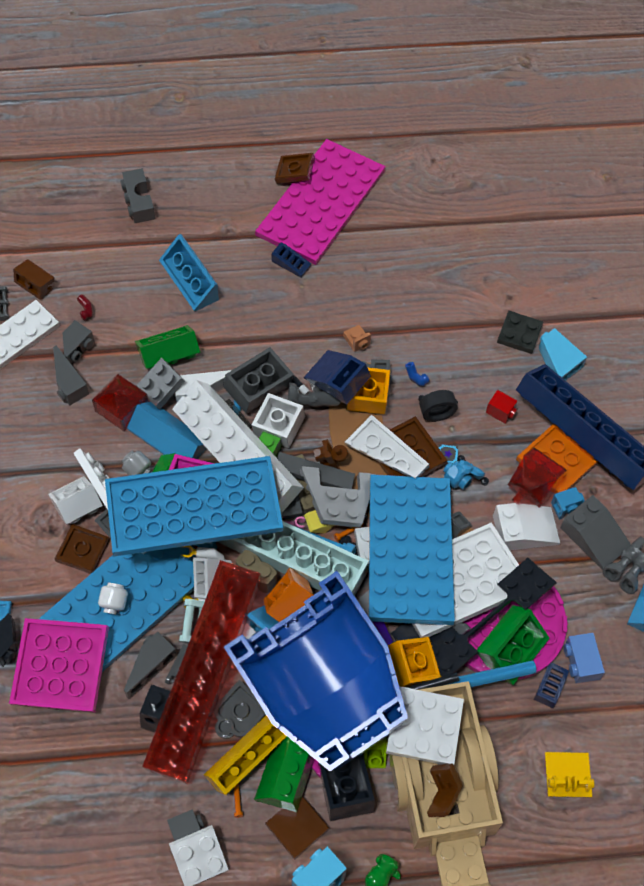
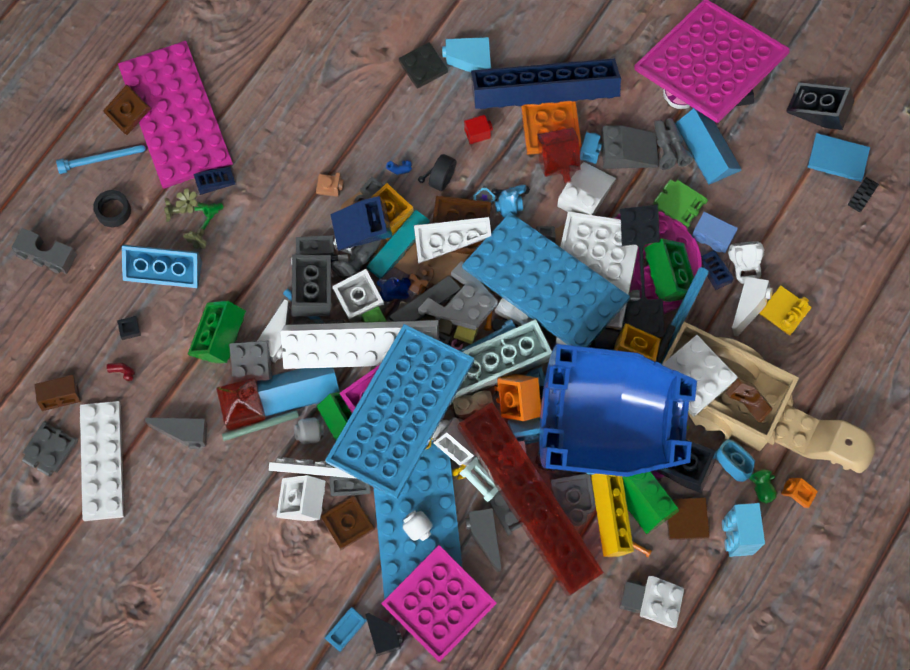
camera: 50 degrees left, 10 degrees up
(76, 341) = (150, 399): dark grey slope -> none
(116, 430) = (260, 425): none -> sand green bar
(122, 288) = (129, 328): none -> black plate
(153, 707) = (528, 555): black torso -> none
(209, 202) = (106, 196): none -> black tyre
(217, 163) = (65, 165): none -> dark azure piece
(244, 246) = (188, 203): none -> olive plant
(295, 362) = (315, 245): none -> dark grey plate
(306, 440) = (394, 288): none -> clear blue hips
(345, 419) = (396, 246): none -> teal slope
(384, 829) = (735, 460): none -> dark azure piece
(546, 736) = (752, 301): none -> white slope
(585, 609) = (679, 202): none -> bright green plate
(585, 702) = (746, 257): none -> white piece

